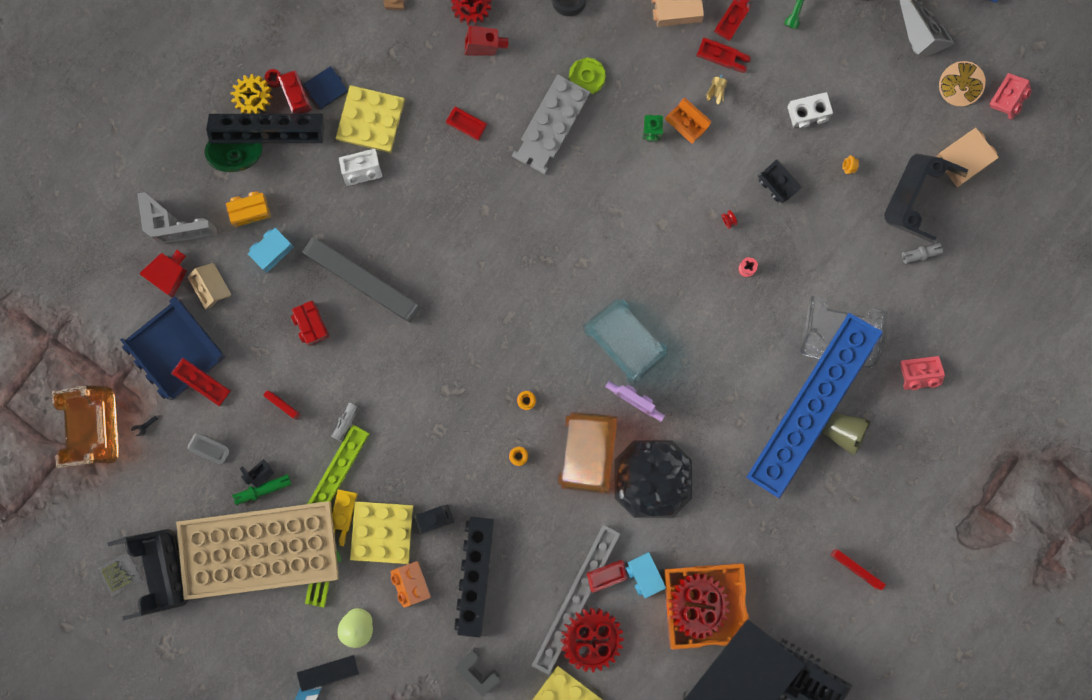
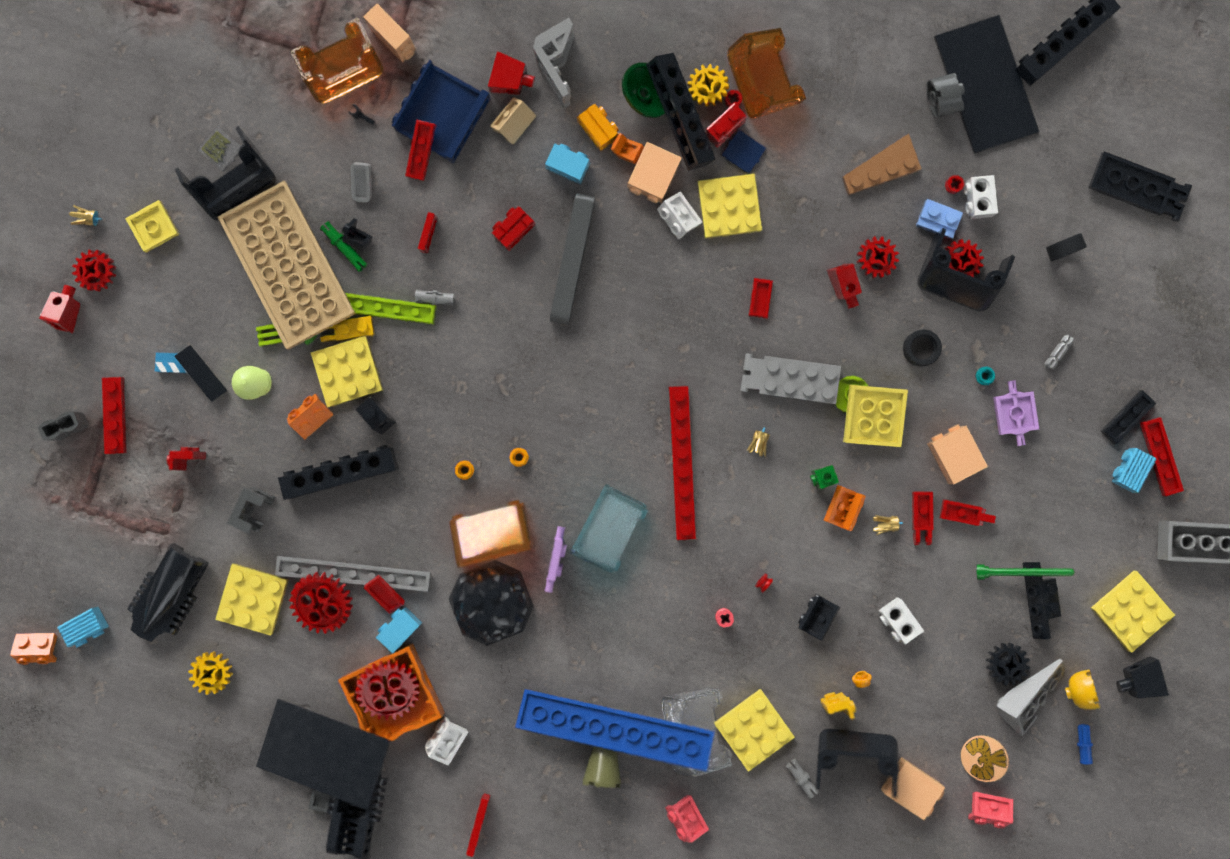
camera: 70 degrees right, 5 degrees up
(79, 367) = (390, 33): none -> light nougat brick
(167, 667) = (152, 226): none -> light yellow plate
(261, 44) = (761, 73): none -> clear orange windscreen
(280, 190) = (627, 149): none -> orange bracket
(312, 174) = (654, 173): none -> light nougat brick
(590, 252) = (682, 463): none -> red plate
(595, 171) = (760, 442): none -> pearl gold piece
(614, 61) = (875, 415): none -> light yellow plate
(767, 571) = (445, 741): none -> white bracket
(861, 280) = (754, 730): none -> light yellow plate
(863, 193) = (837, 702): none -> yellow bracket
(892, 35) = (1008, 656): none -> black gear

